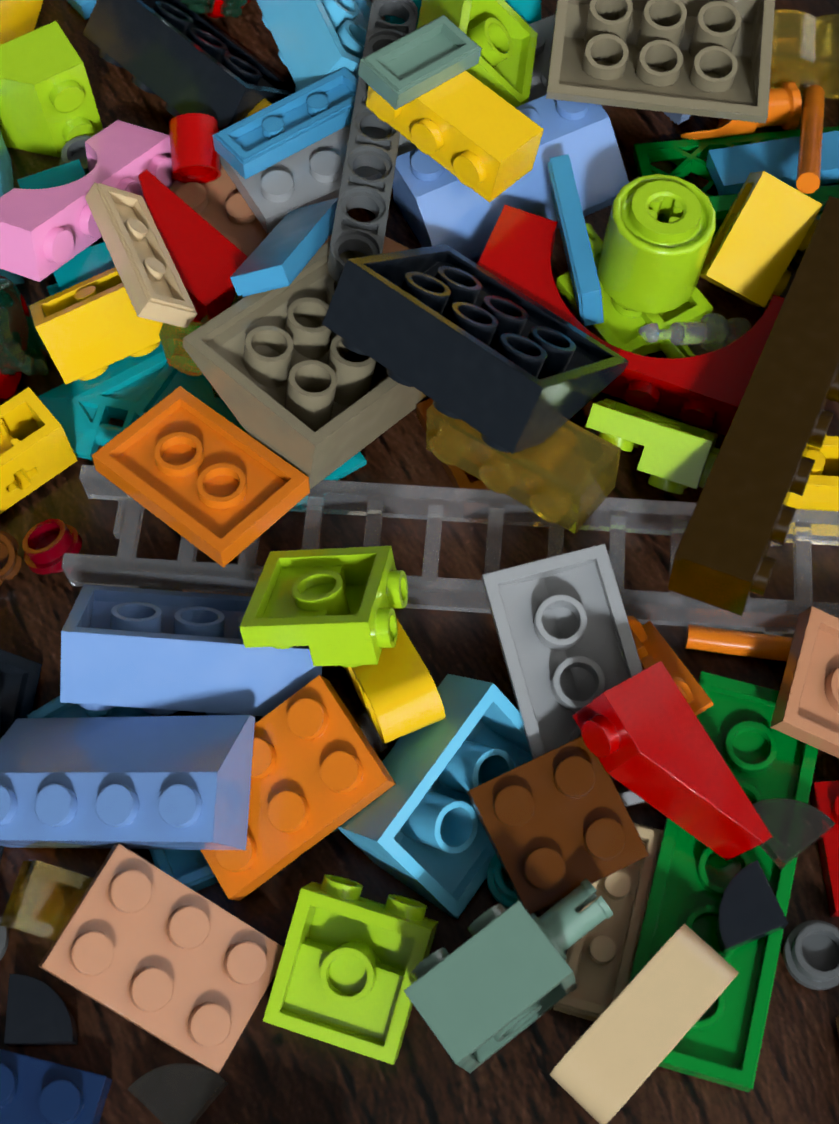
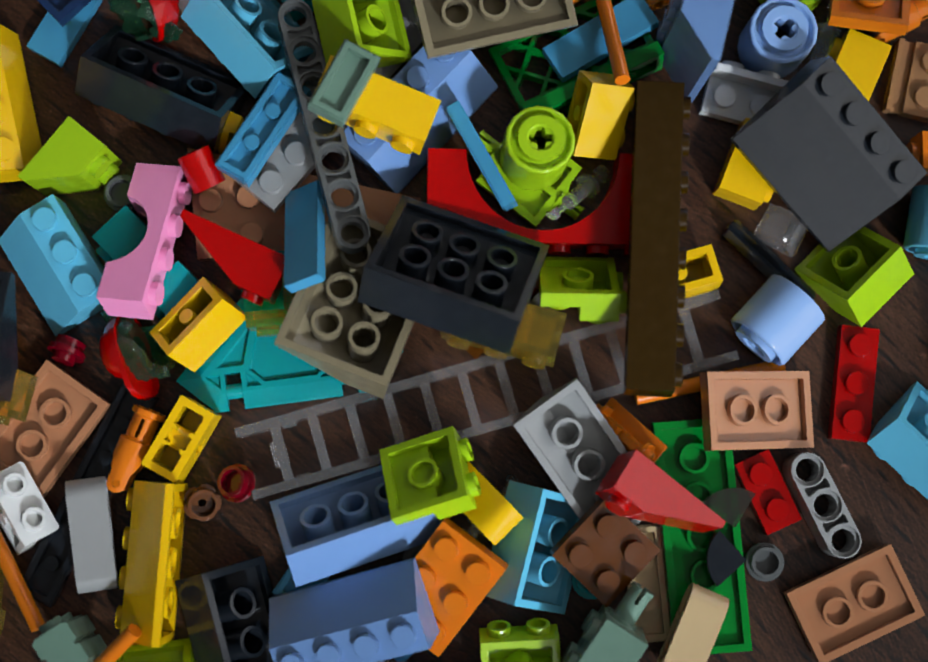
camera: 30 degrees left, 20 degrees up
(140, 256) = (213, 283): tan tile -> none
(201, 475) = (315, 415): orange plate -> none

